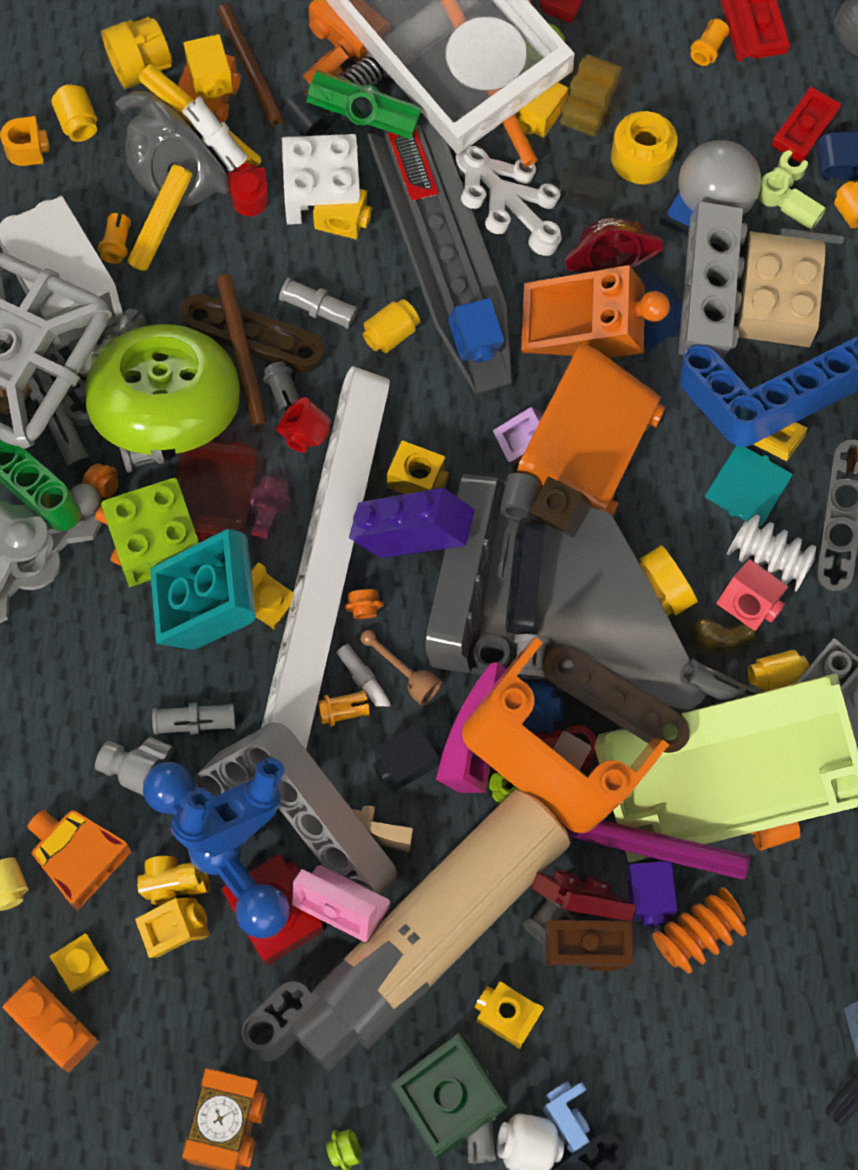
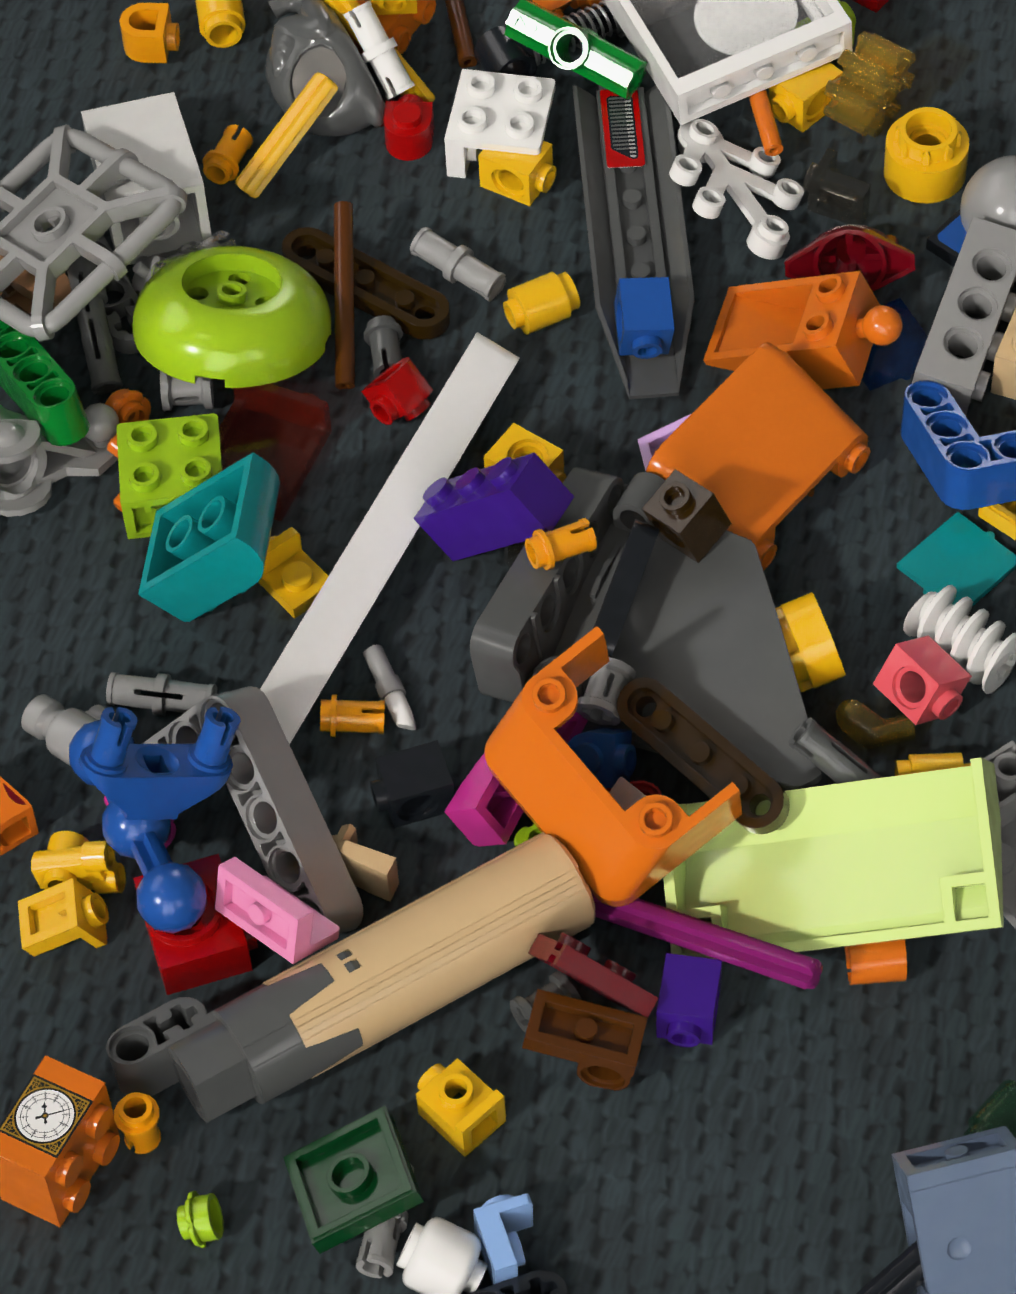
camera: 20 degrees right, 15 degrees down
(268, 499) = (328, 470): clear pink piece -> none
(273, 1075) = (138, 1119): none -> light orange pin
(363, 603) = (414, 604): orange plate -> none
(421, 684) = (462, 709): medium nougat hinge -> none
(467, 558) = (559, 544): none -> light orange pin
(701, 930) = (741, 1056): orange piece -> none

